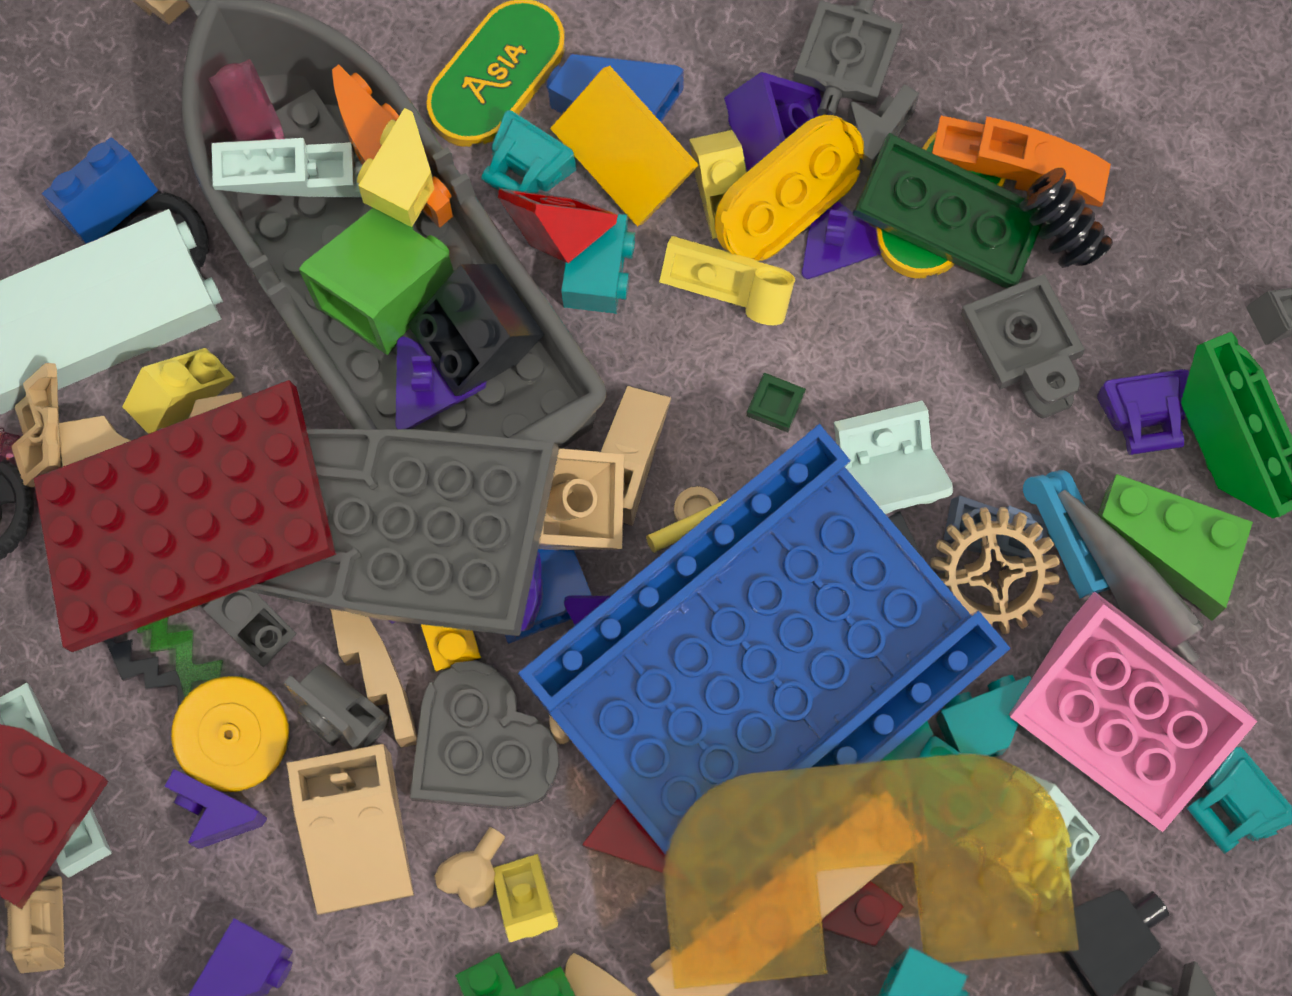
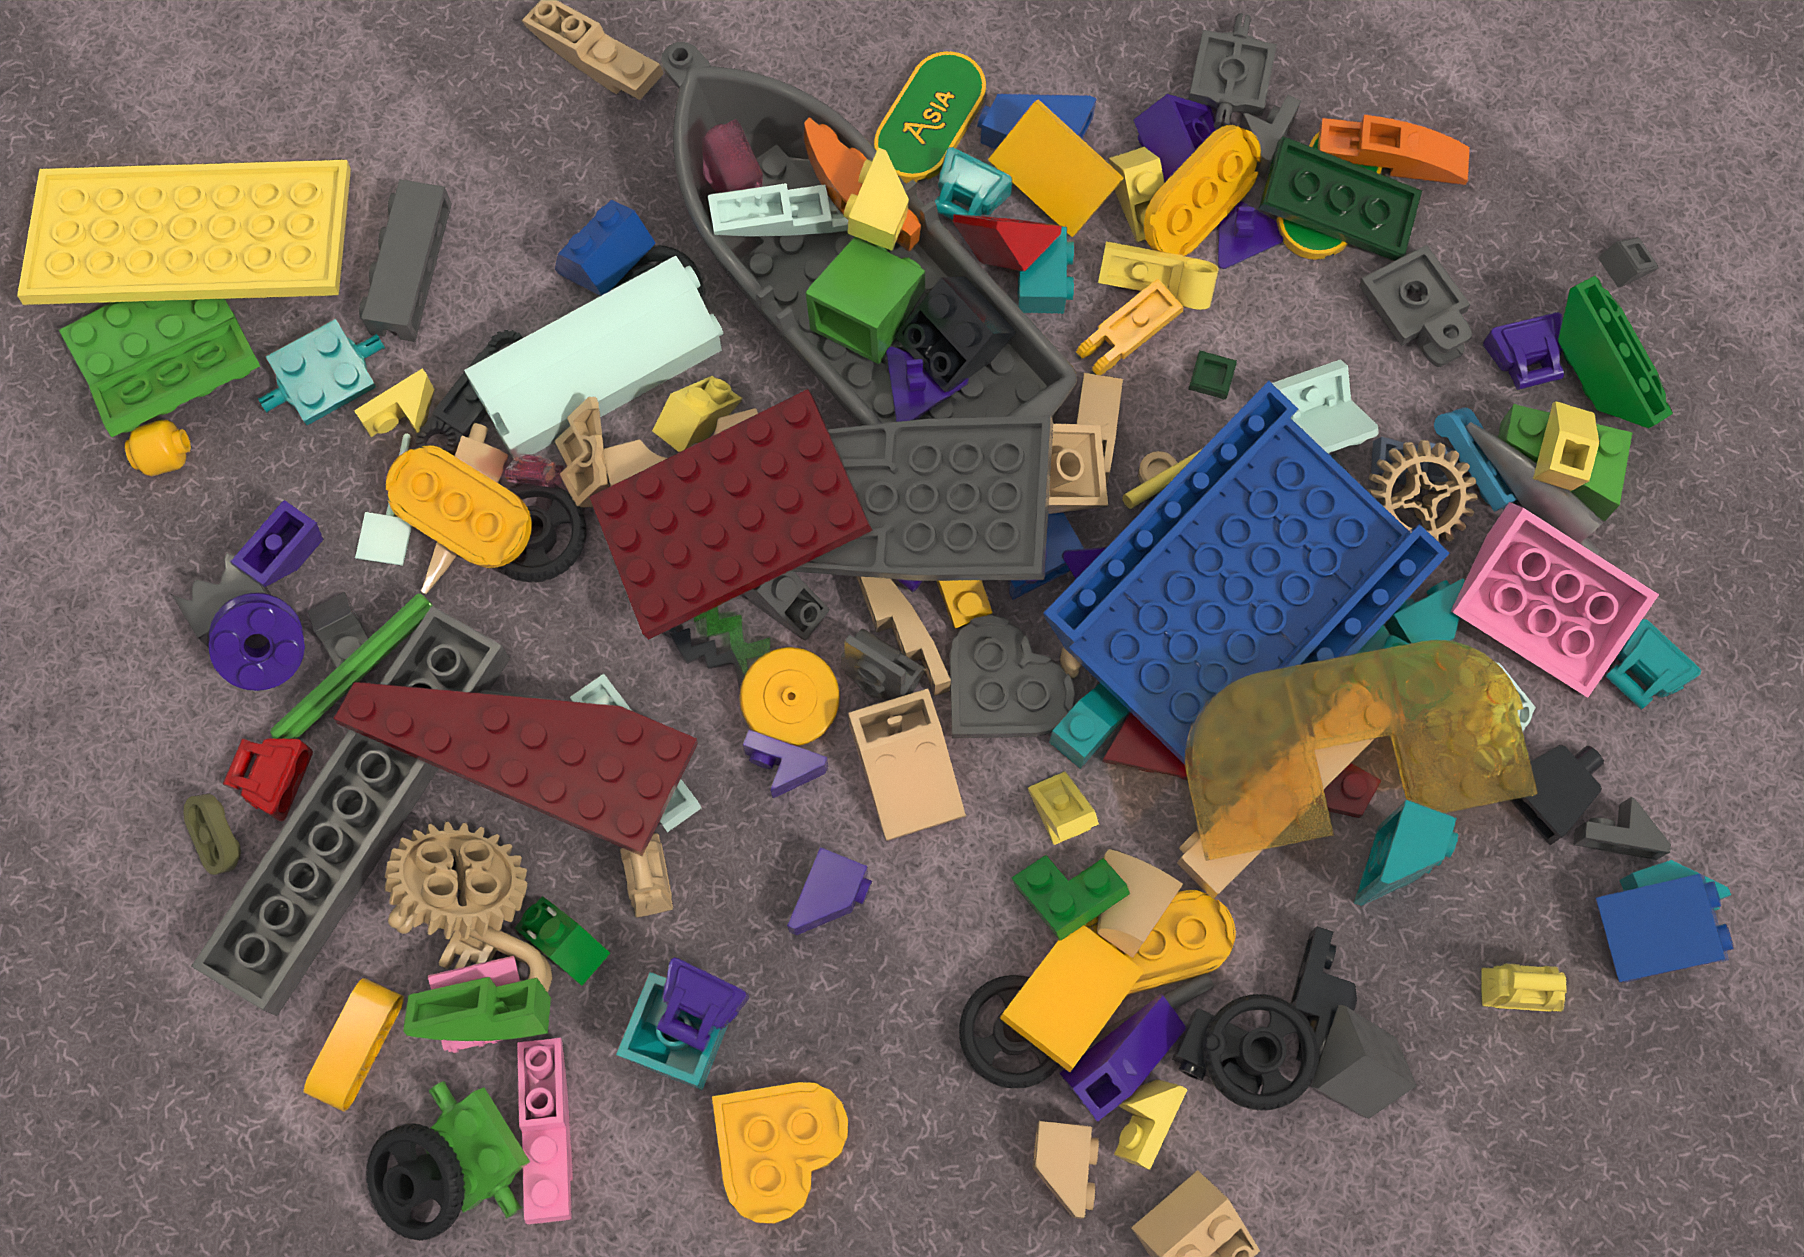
camera: 10 degrees left, 0 degrees up
(471, 872) = (1012, 791): tan rock -> none
(568, 804) = (1088, 725): none -> teal slope
(688, 337) = (1132, 325): none -> yellow hinge
(1066, 220) = (1441, 196): black piece -> none
(1169, 533) = (1567, 447): none -> light yellow slope

